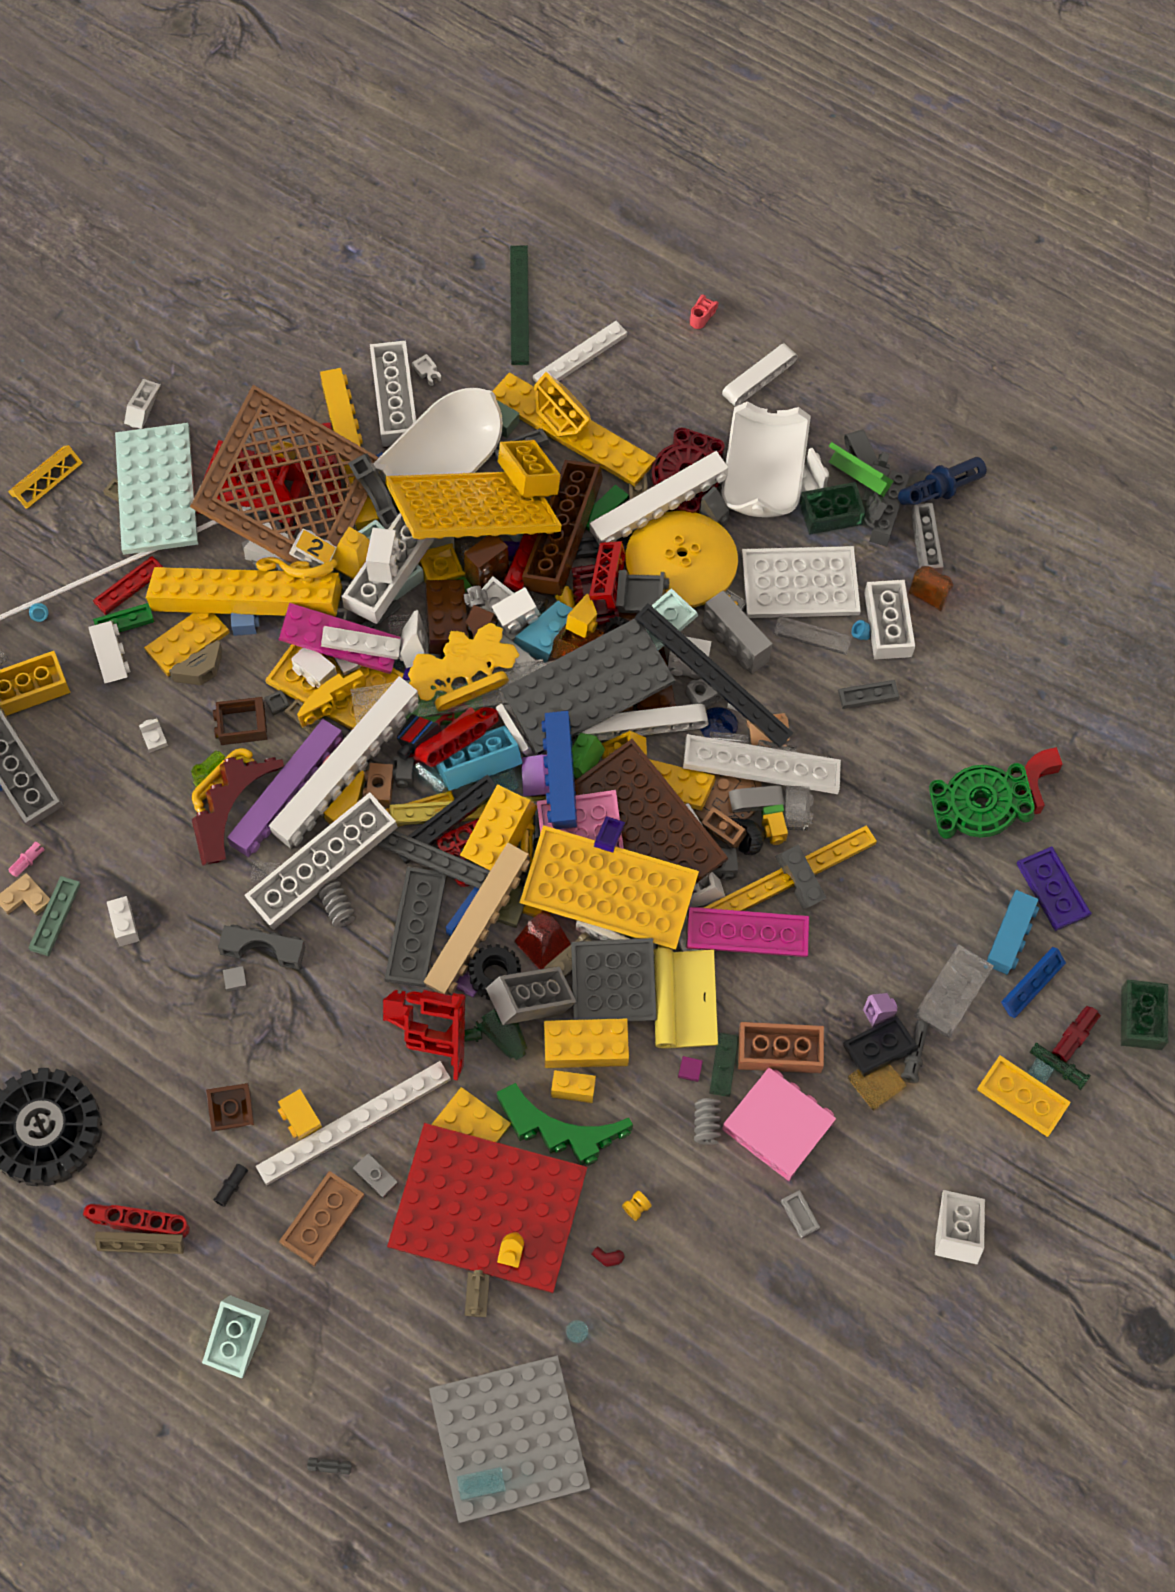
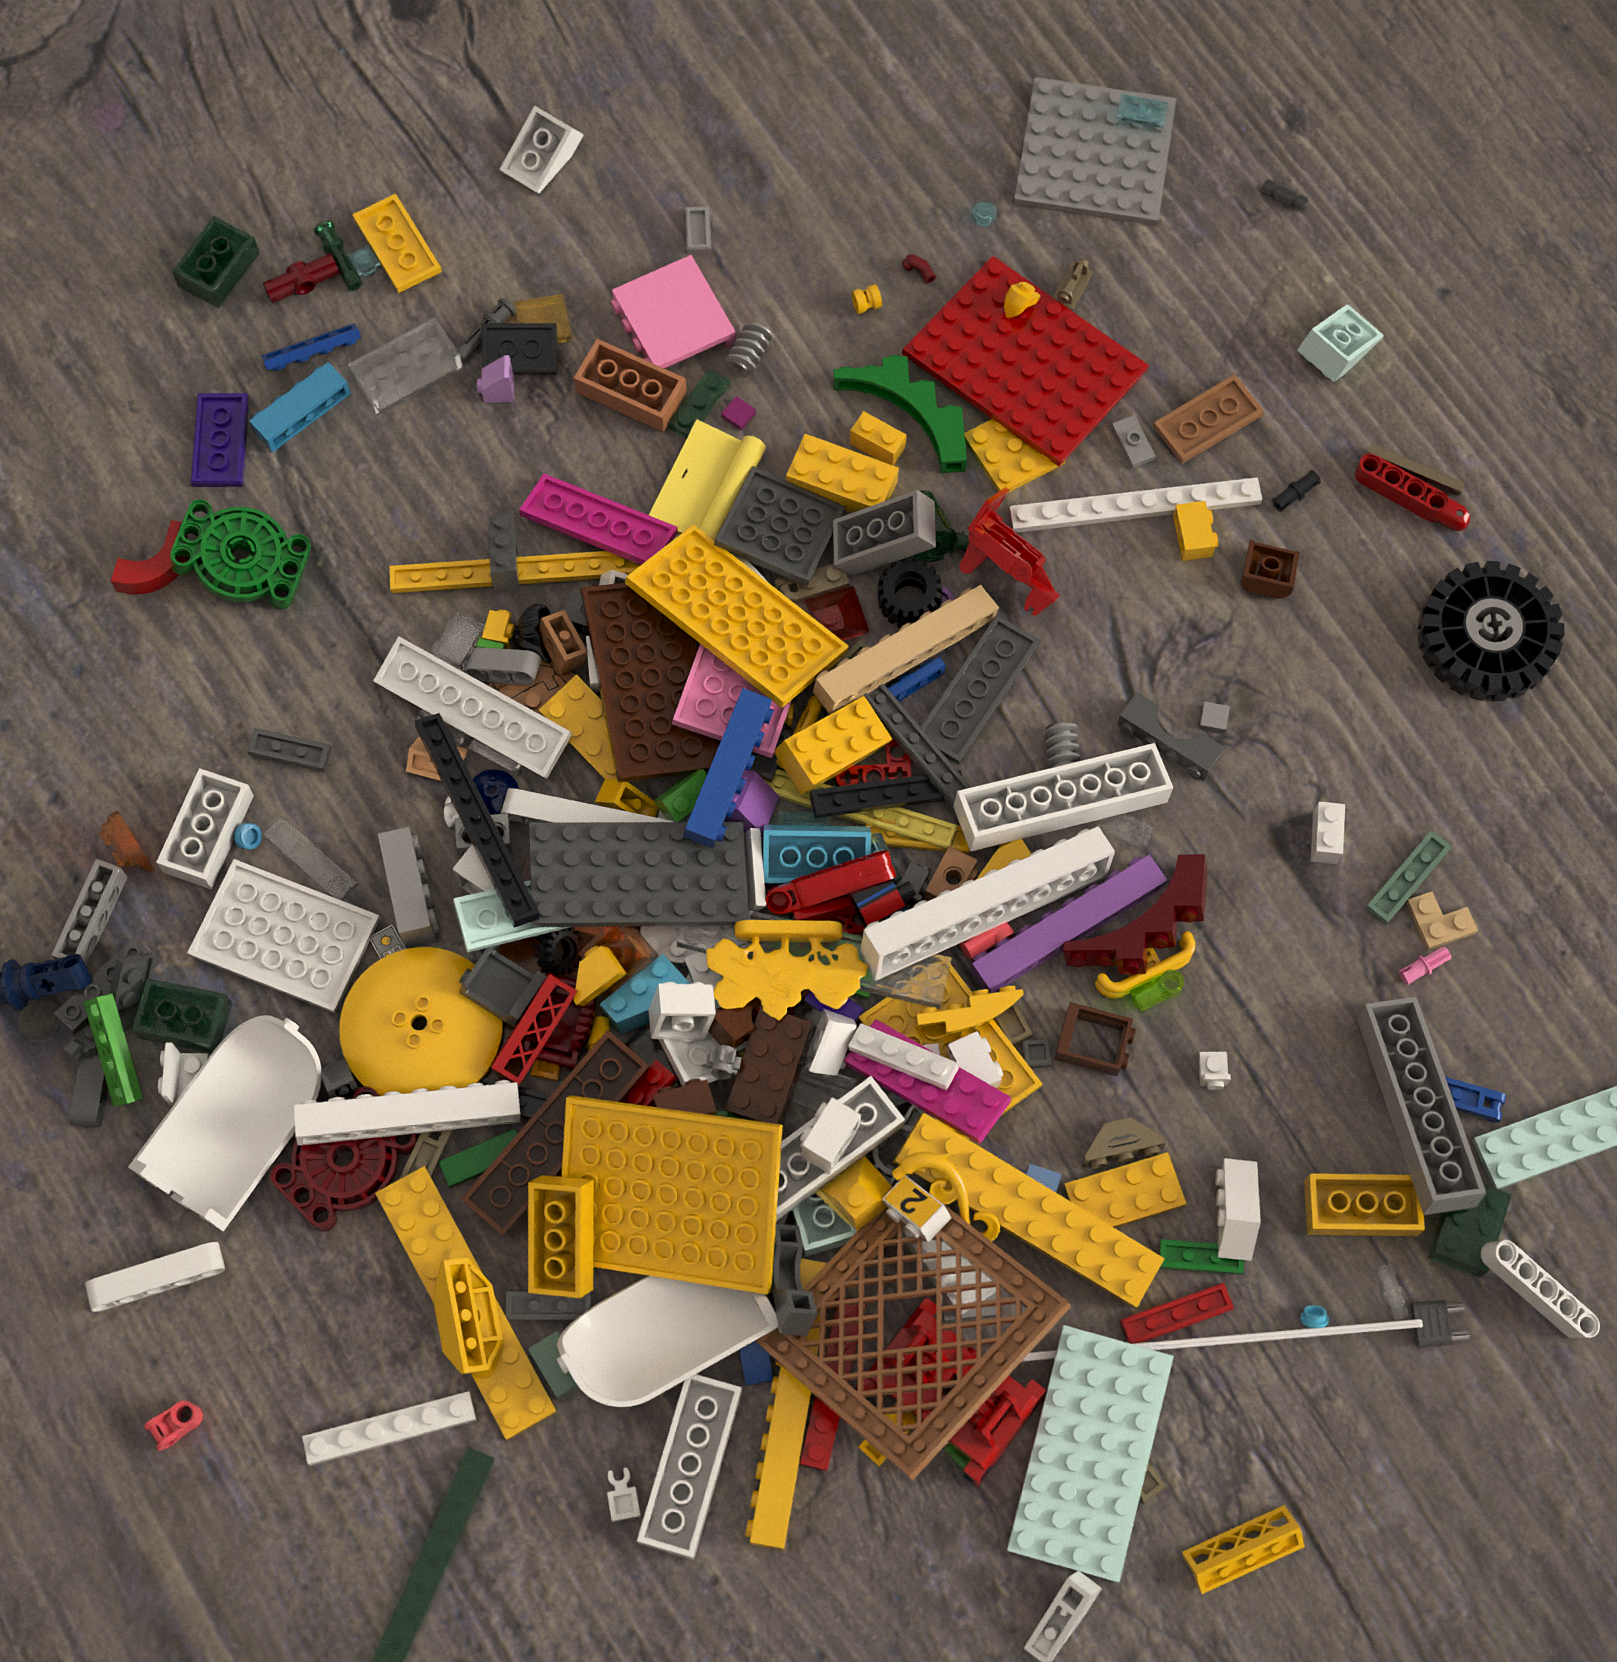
camera: 155 degrees left, 5 degrees up
(609, 834) = (709, 661): dark purple tile -> none

